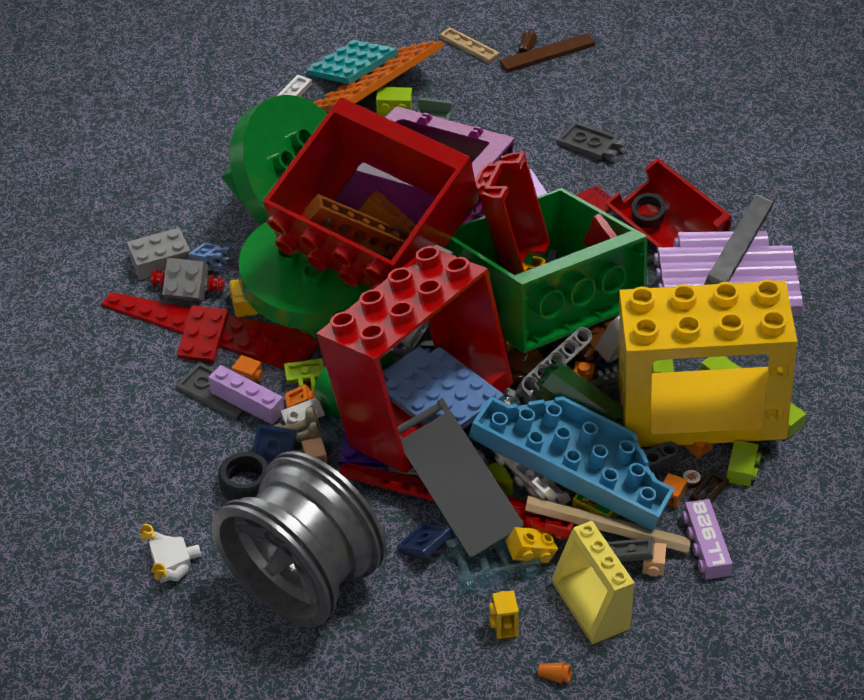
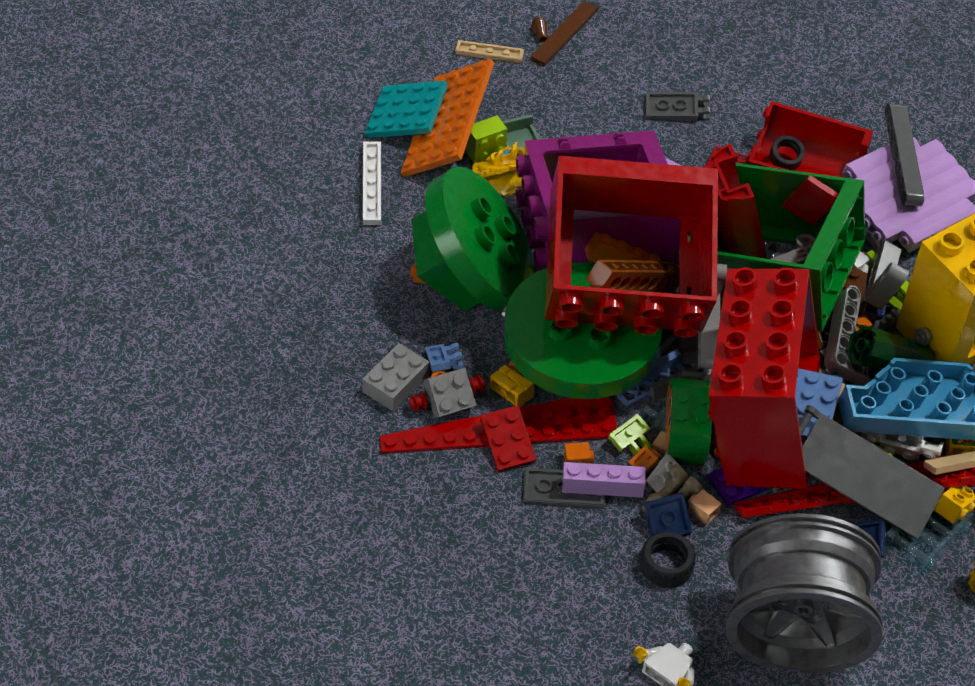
camera: 35 degrees left, 5 degrees up
(615, 394) = (923, 336): none -> flat silver plate

